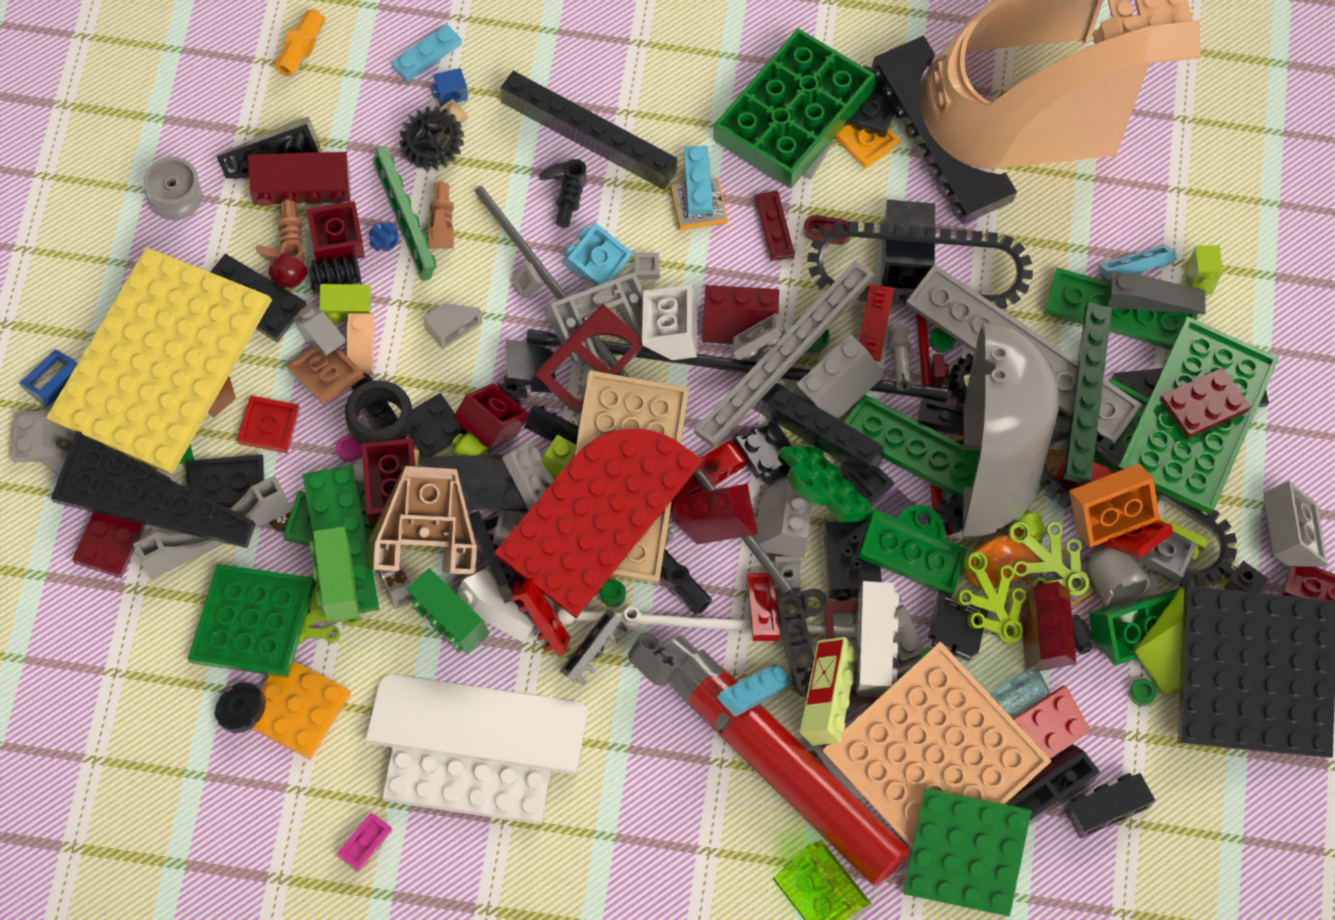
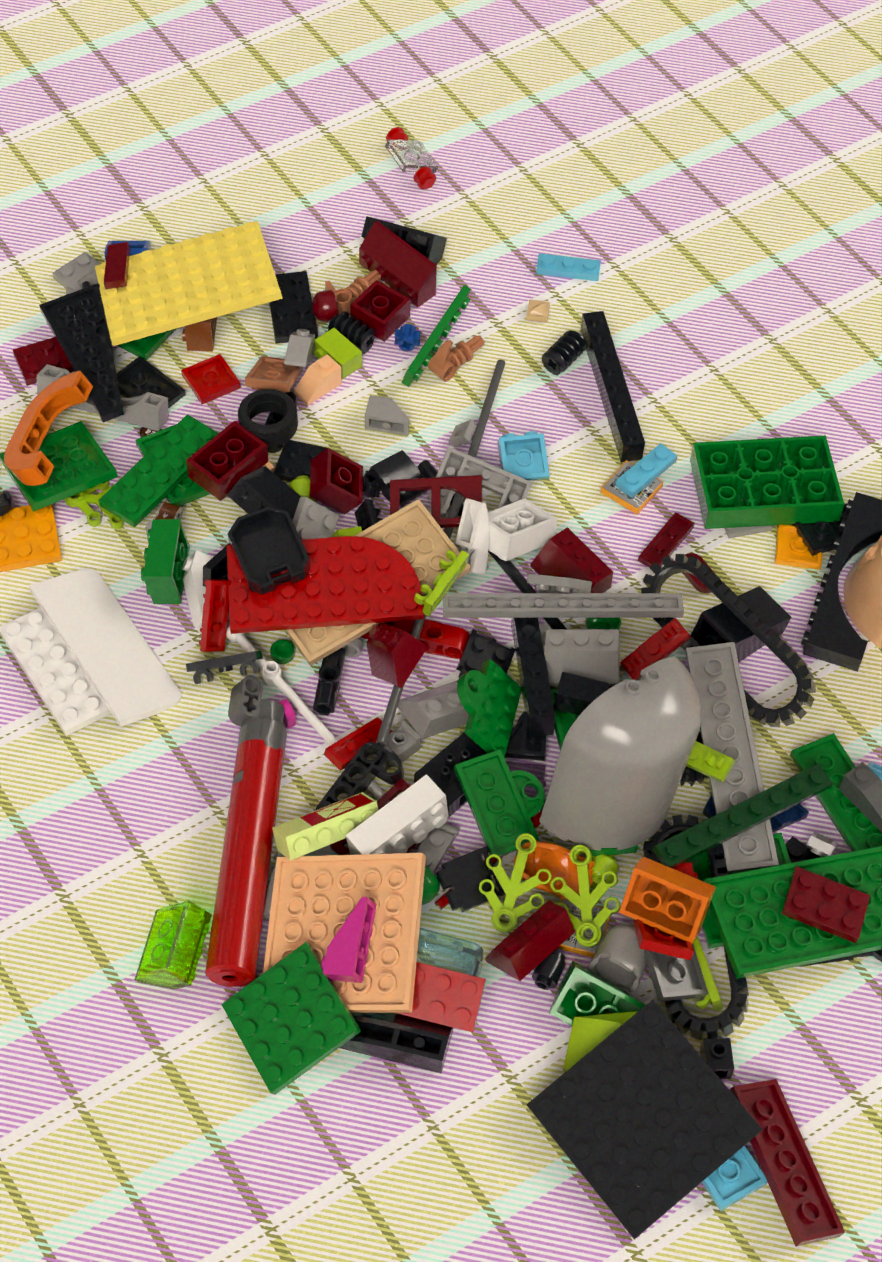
camera: 50 degrees right, 10 degrees down
(76, 399) = (116, 265): none -> dark red tile
(173, 188) = (320, 212): light grey wheel -> none
(180, 65) = (412, 157): none -> clear plate
(198, 612) = (22, 450): none -> orange arch
(299, 42) = (497, 200): light orange piece -> none
(334, 574) = (123, 473): bright green brick -> none
(412, 148) = (506, 309): black gear -> none
(424, 511) = (218, 486): medium nougat wedge -> none
(449, 86) = (557, 293): blue brick -> none
(519, 134) = (564, 352): none -> black piece
(530, 521) = (266, 545): none -> black piece
(571, 187) = (567, 405): black piece -> none
(647, 265) = (549, 490): light grey plate -> none
(653, 357) = (474, 534): none -> white slope
(674, 632) = (289, 715): none -> dark pink tile
(691, 420) = (442, 582): none -> lime plate
(755, 689) = (281, 778): medium azure plate -> none
(874, 410) = (577, 693): none -> black brick
(965, 763) = (349, 948): none -> dark pink slope
(1109, 804) = (429, 1096): black brick -> none
(1142, 692) = (550, 1053): green tile -> none
(1144, 360) = (821, 845): none -> light grey plate
(1294, 526) = (801, 1057): light grey slope -> none

